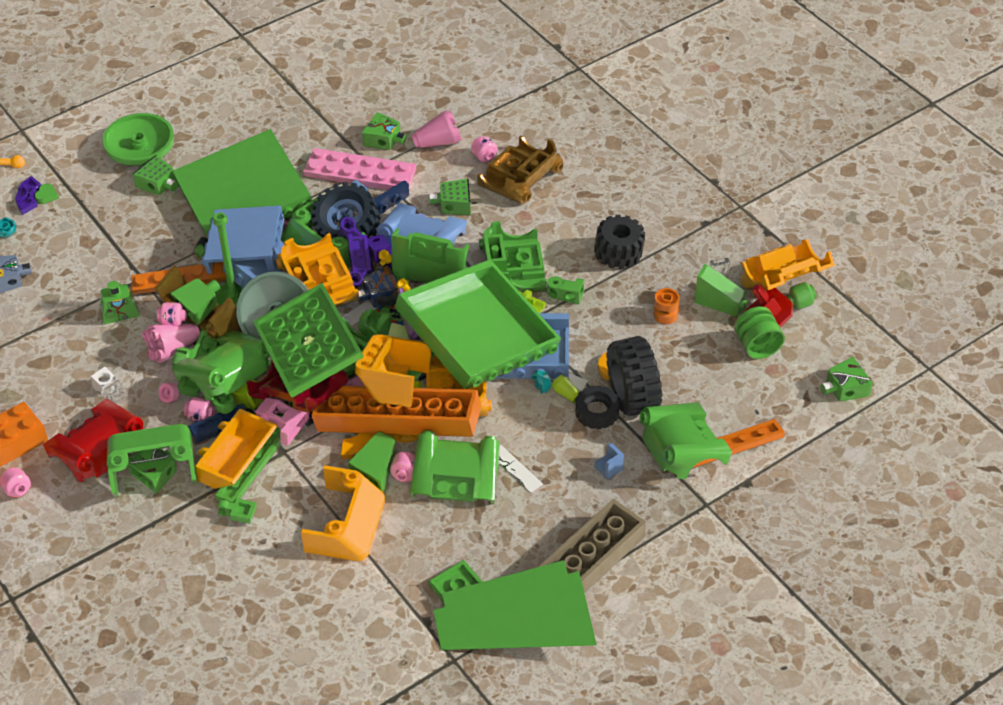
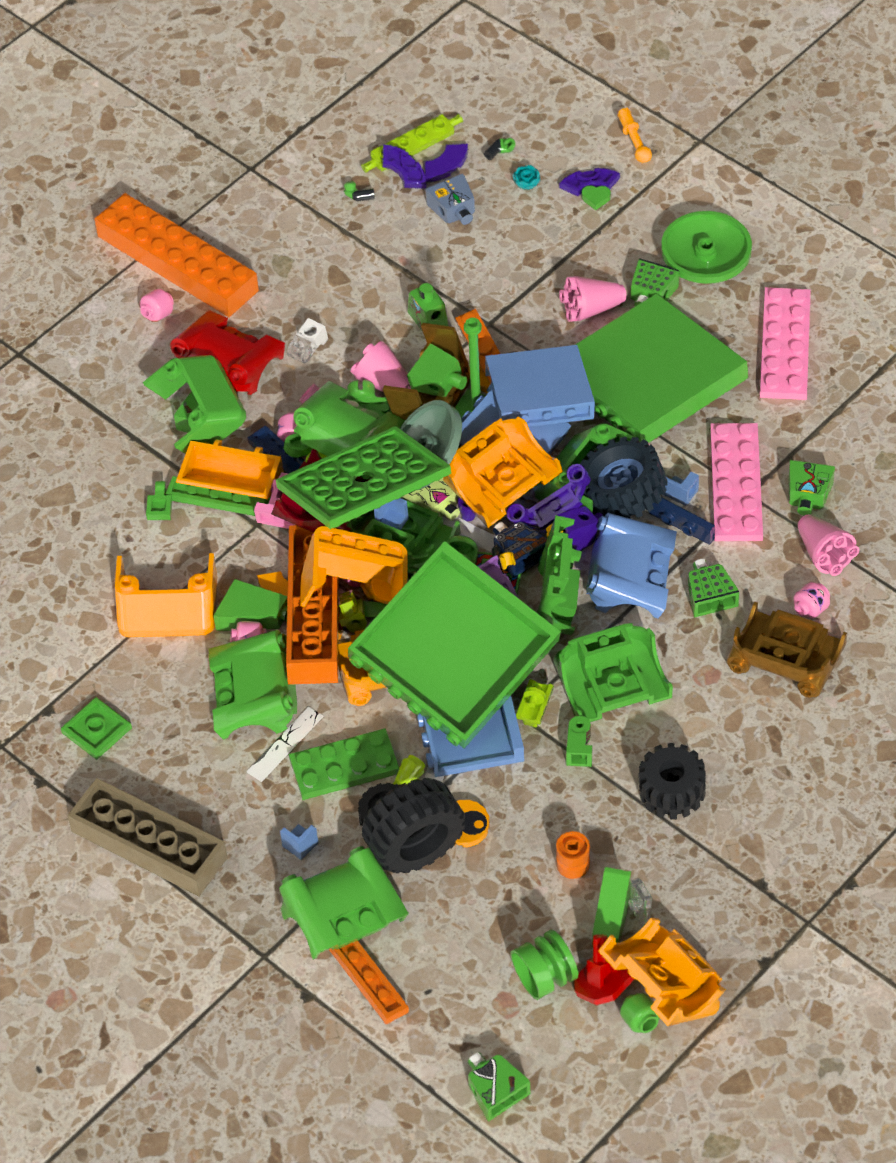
camera: 80 degrees right, 5 degrees up
(154, 212) = (589, 297): none -> bright pink cone
(171, 314) = (405, 355): bright pink head -> none
(242, 121) = (785, 343): none -> bright pink plate
(517, 611) = (55, 783): bright green sticker -> none
(542, 381) = (409, 743): teal plate -> none
(543, 429) = (344, 764): none -> bright green piece

